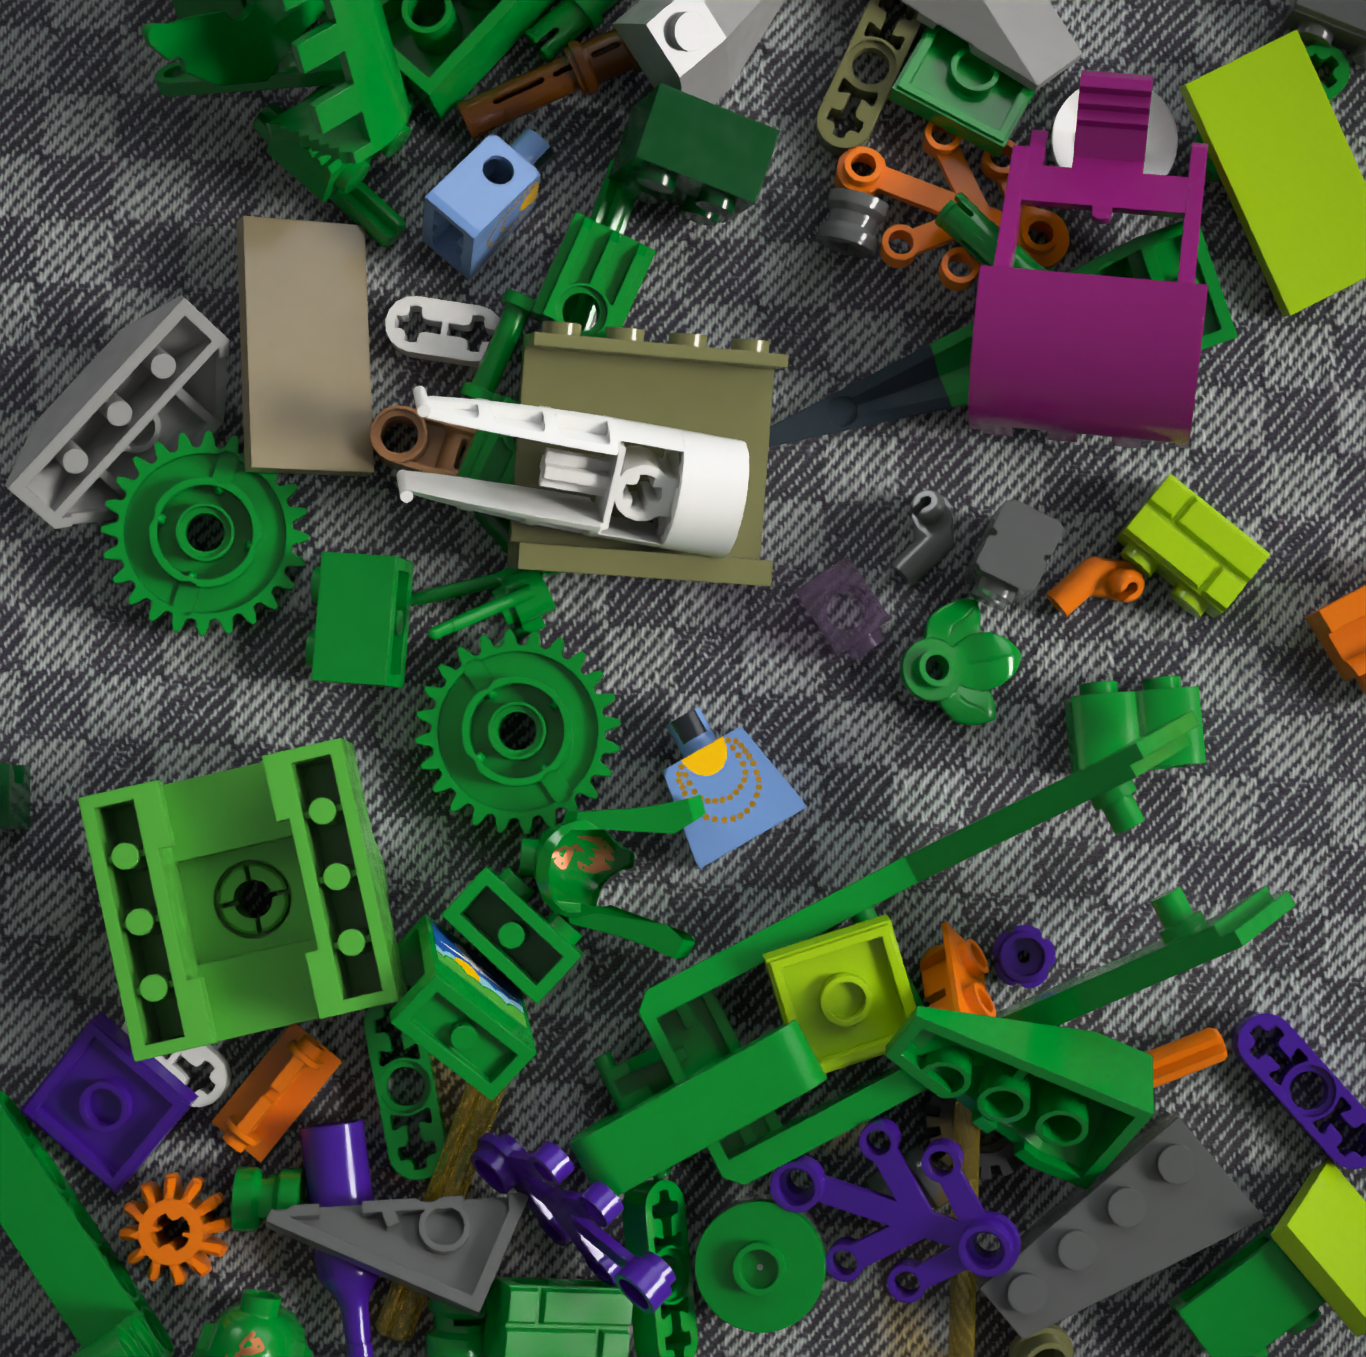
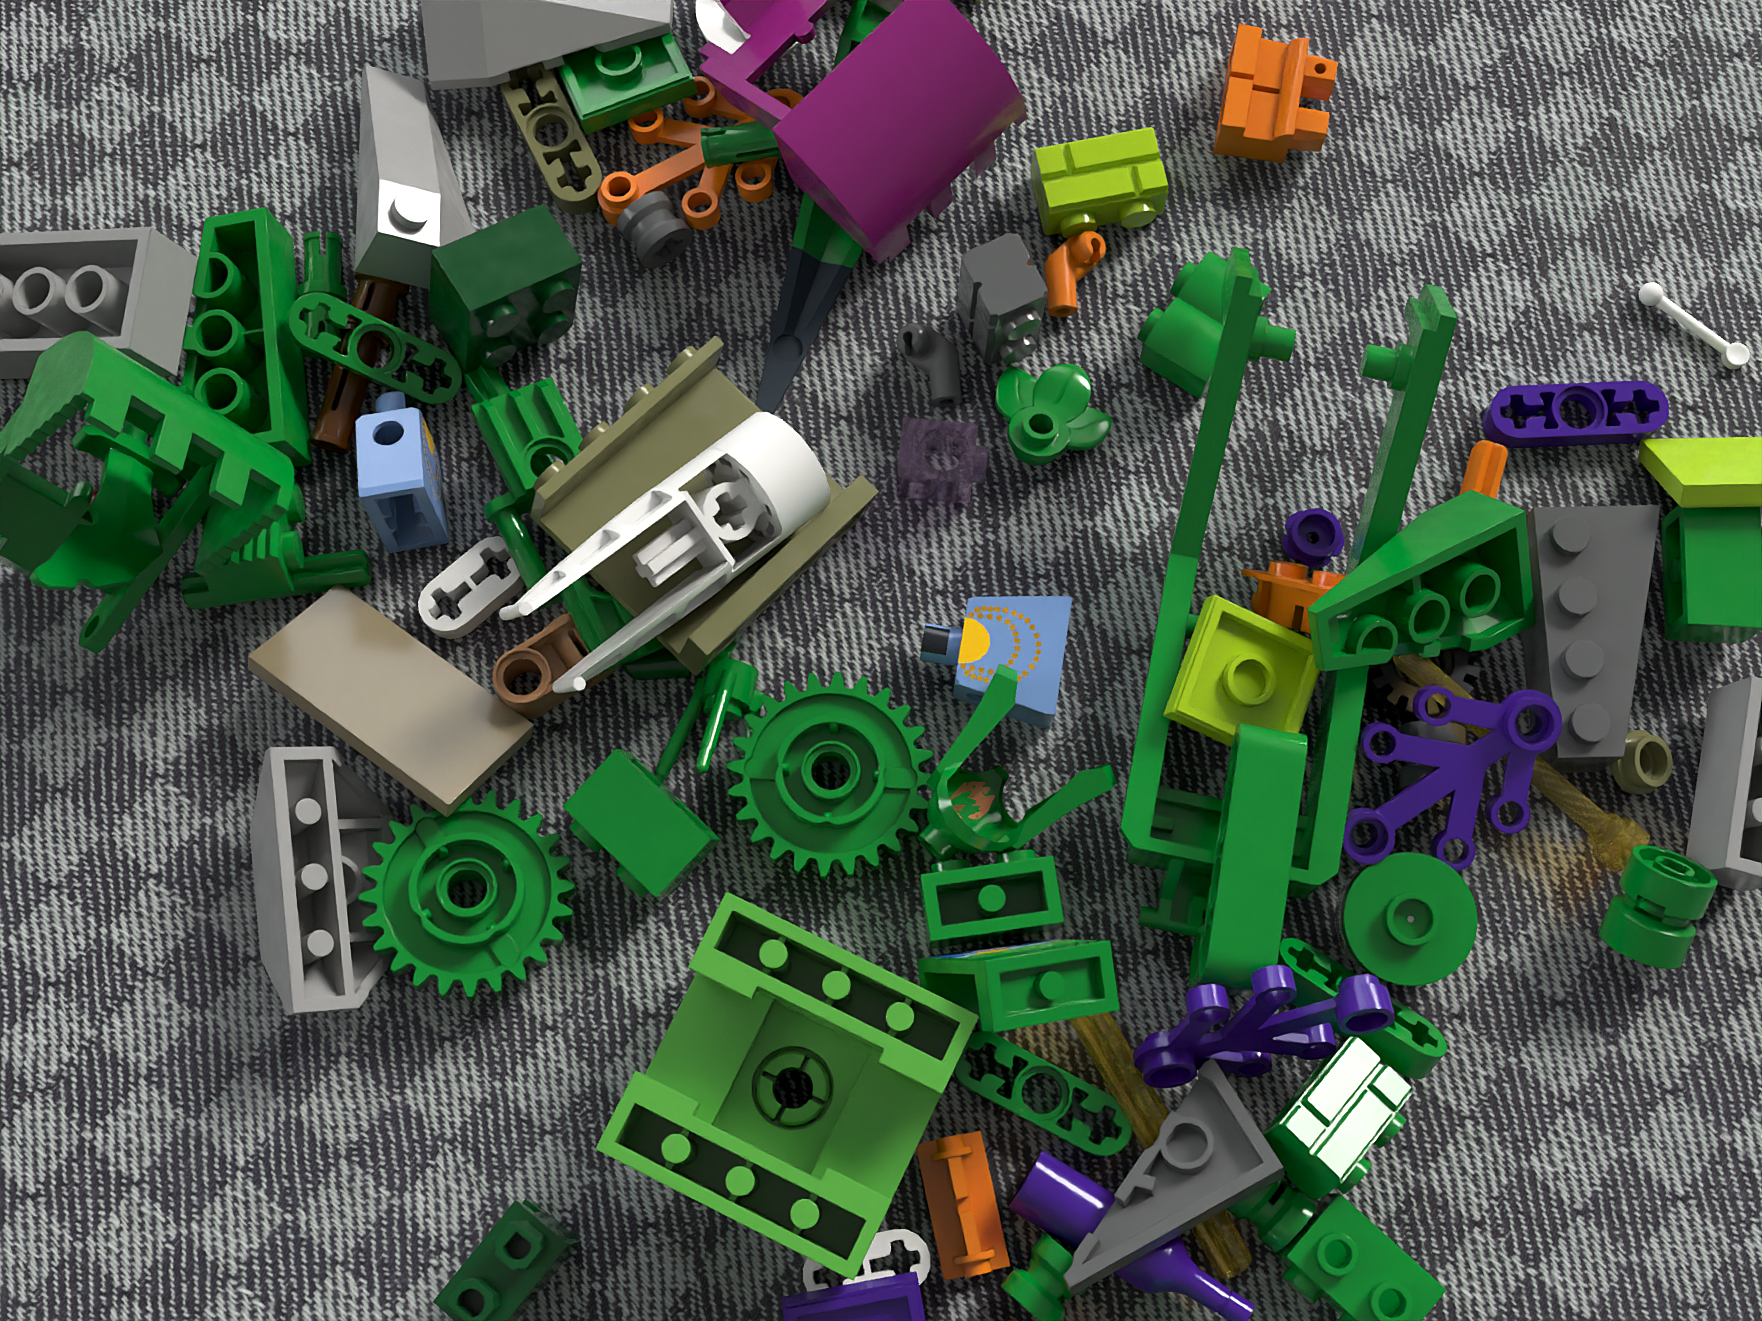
camera: 50 degrees left, 10 degrees down
(533, 54) = (337, 315): none -> green beam

